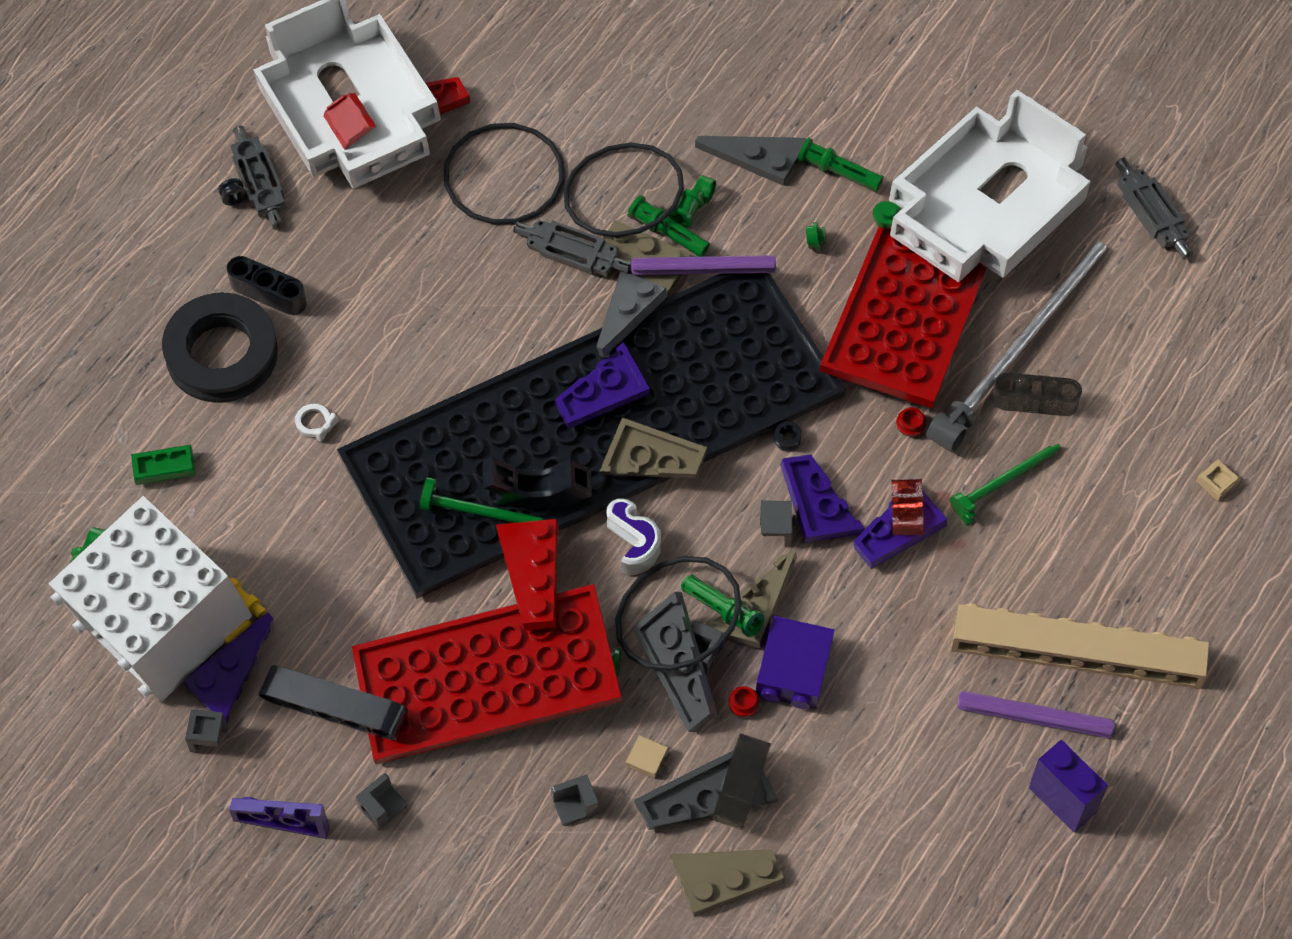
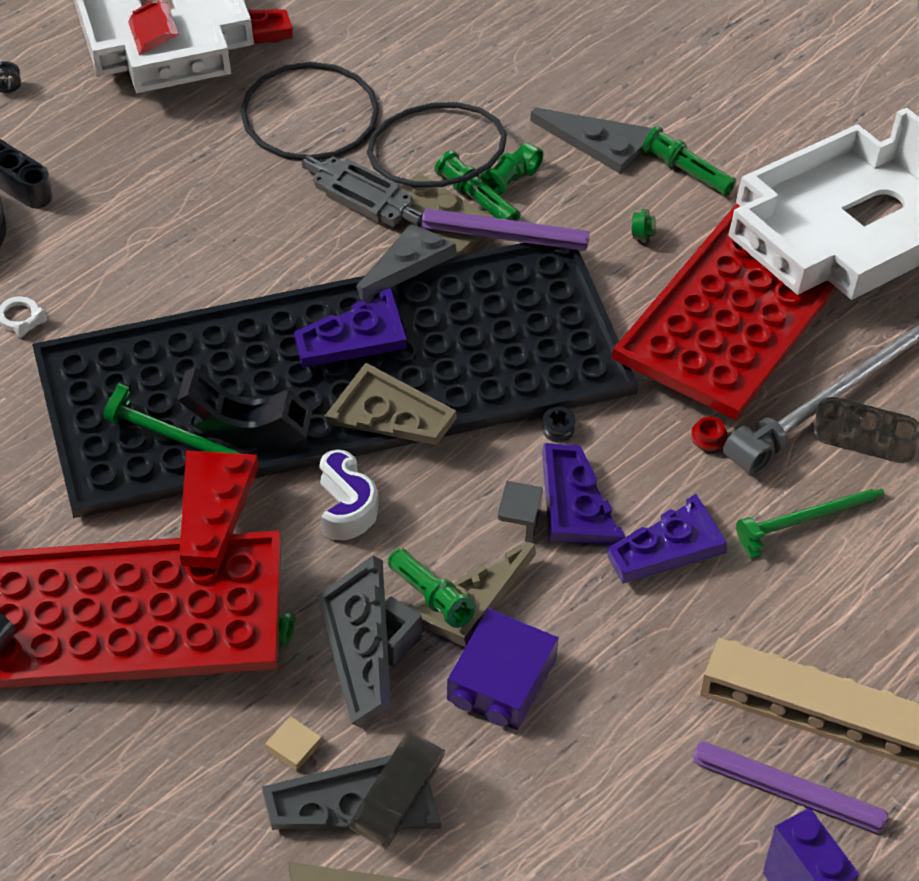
camera: 10 degrees right, 10 degrees down
(267, 199) = (42, 91): dark grey piece -> none
(575, 800) = (189, 775): dark grey panel -> none
(705, 654) = (392, 632): black piece -> none
(743, 701) = (429, 702): red plate -> none
(884, 213) = (723, 212): green plate -> none
(907, 507) = (681, 520): clear red slope -> none

